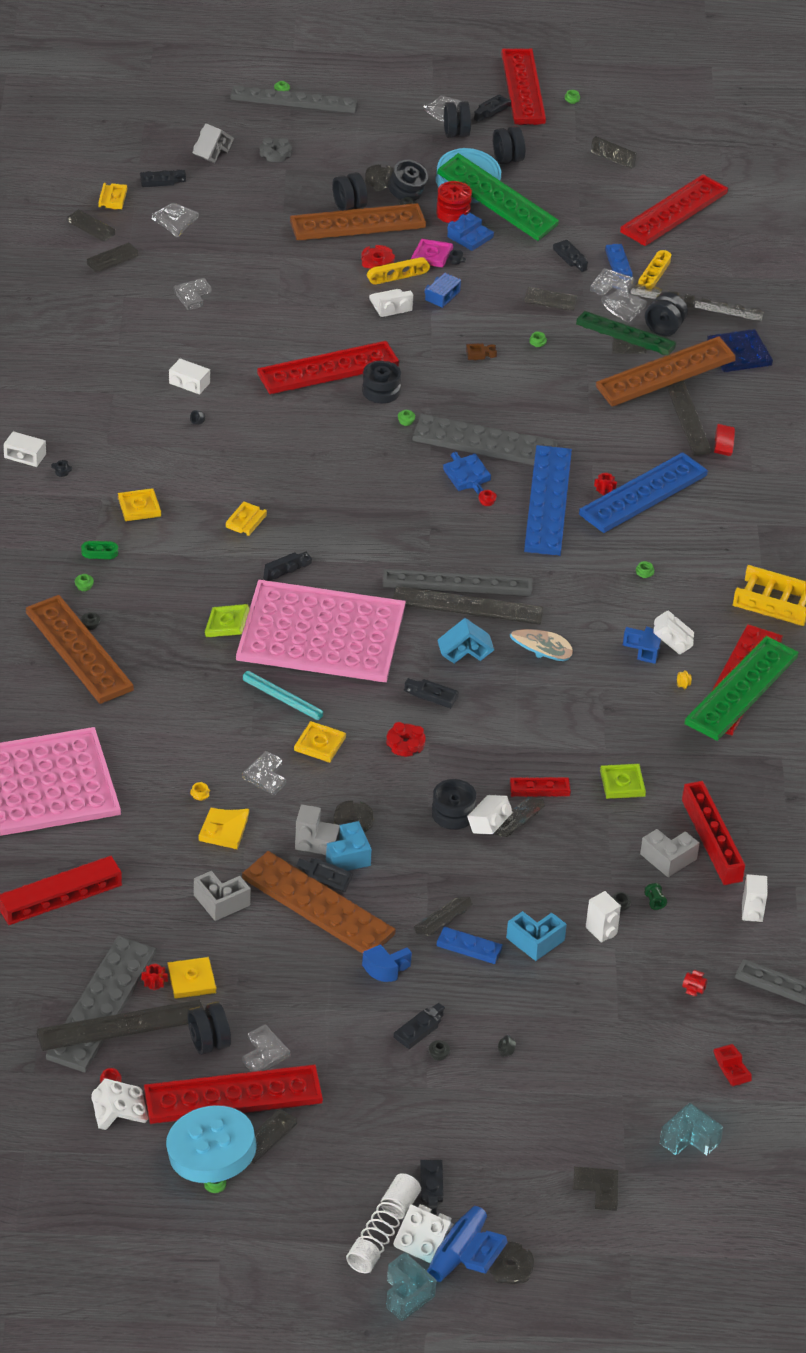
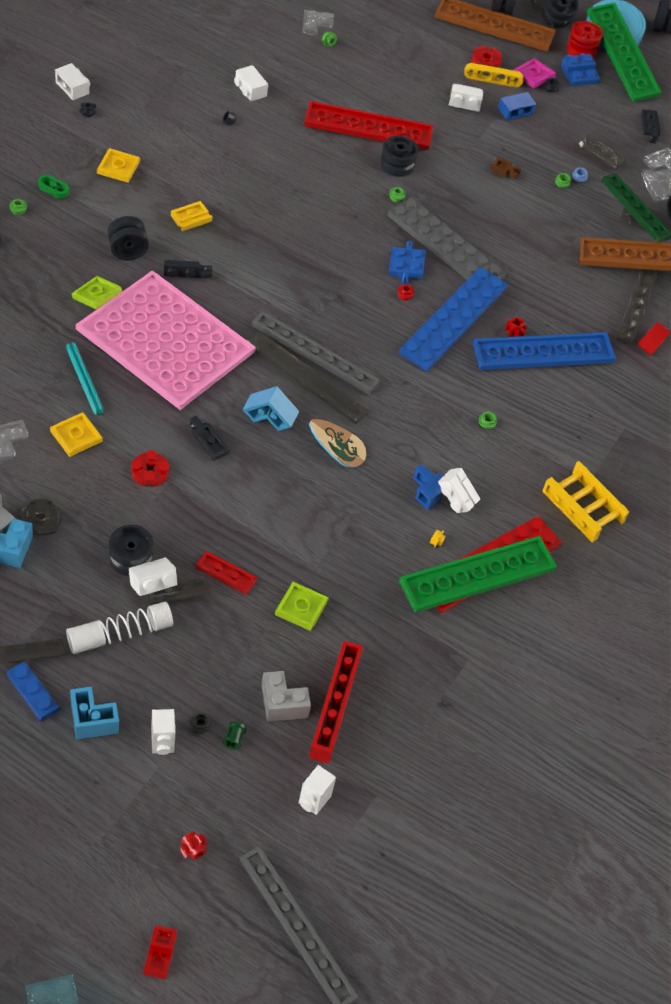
camera: 25 degrees right, 10 degrees up
(216, 561) = (128, 238): none -> black wheel
(221, 303) = (329, 39): none -> bright green plate
(483, 878) = (92, 634): none -> white piece
(548, 327) = (580, 175): none -> medium blue plate

